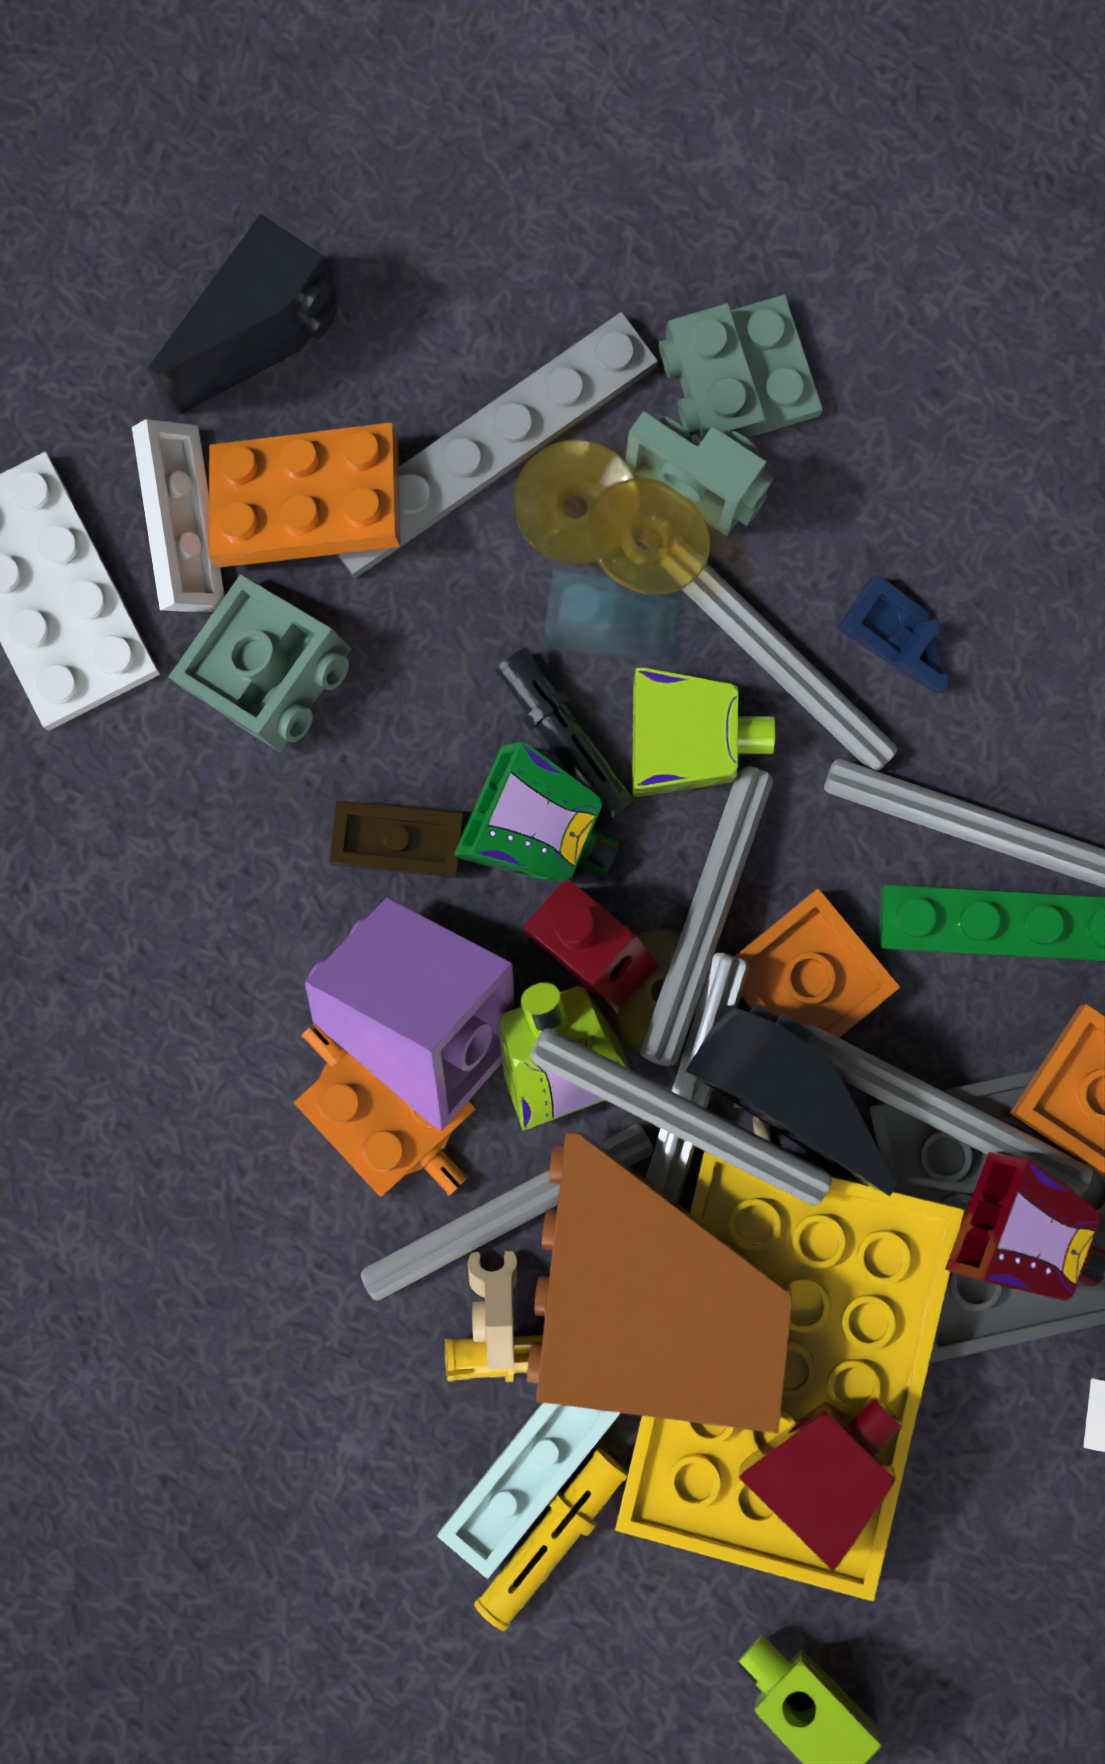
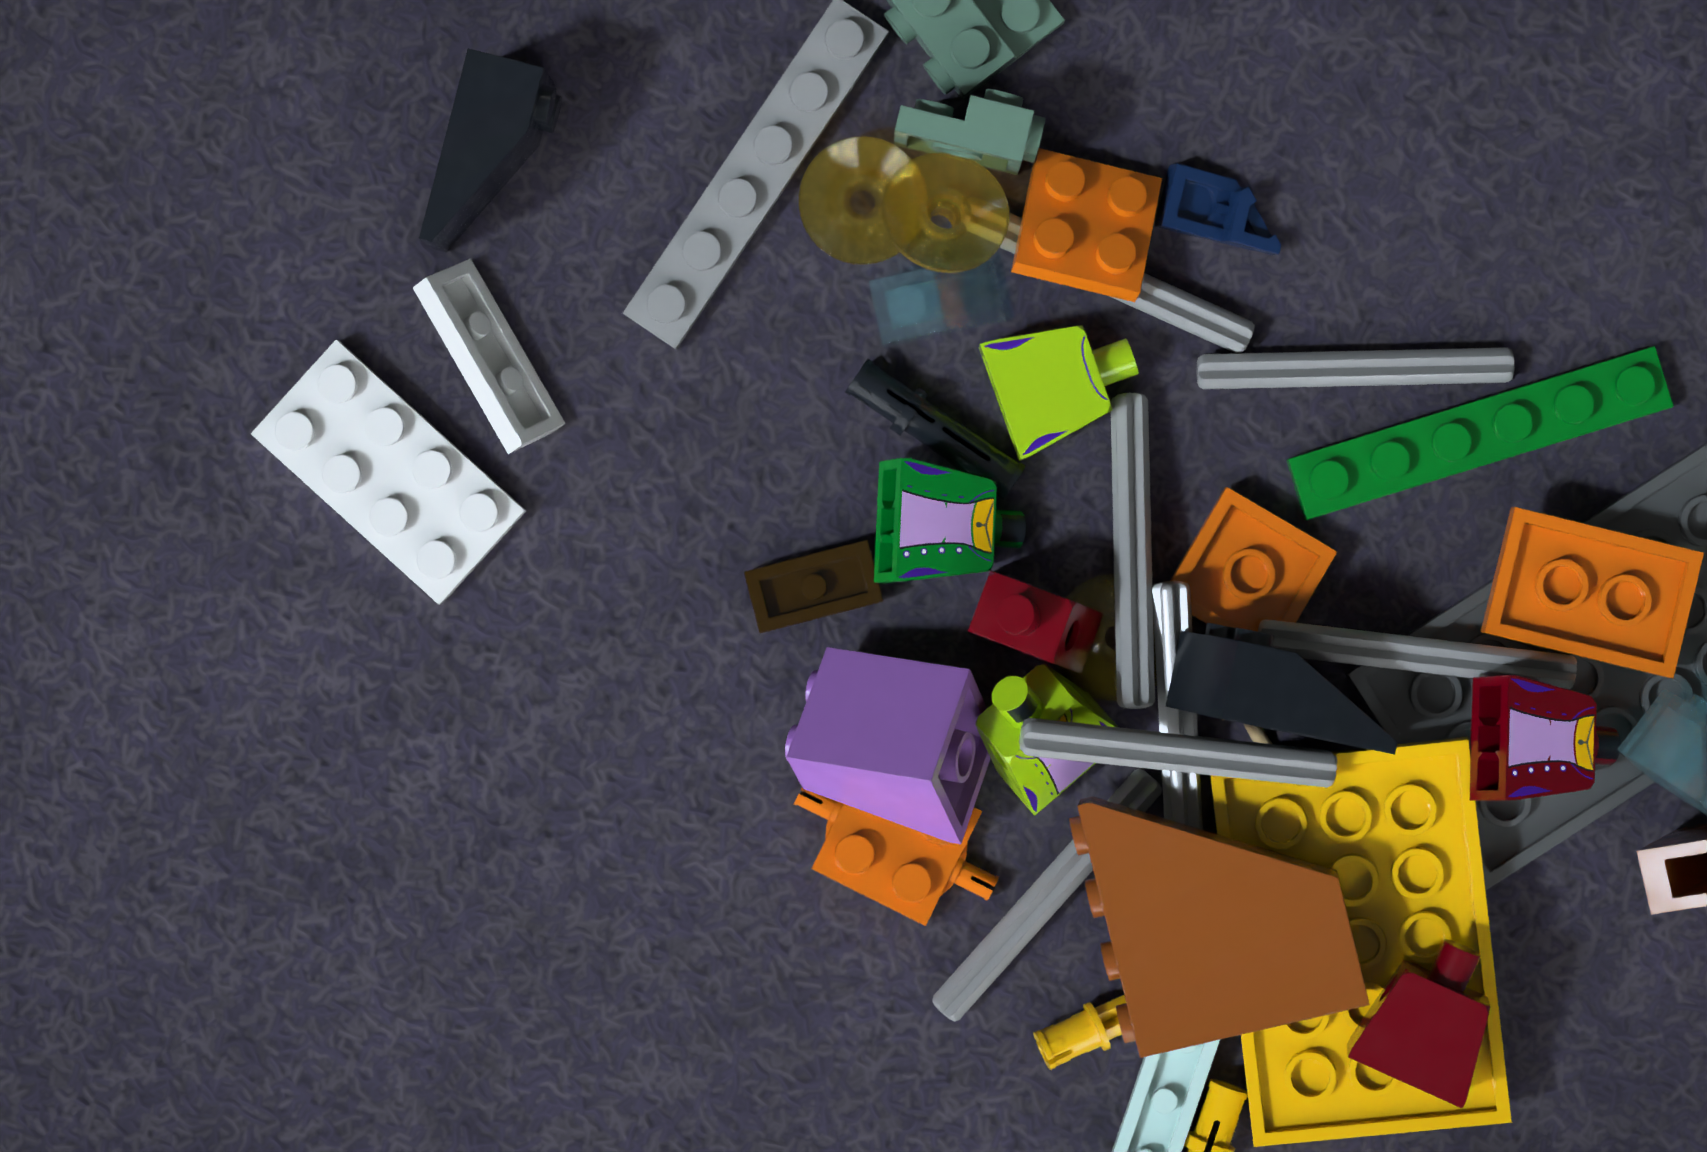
camera: 20 degrees left, 5 degrees up
(262, 663) = (623, 468): sand green plate -> none
(304, 495) = (601, 291): orange plate -> none
(494, 1317) = (1072, 995): tan plate -> none
(775, 599) = (1086, 225): none -> orange plate

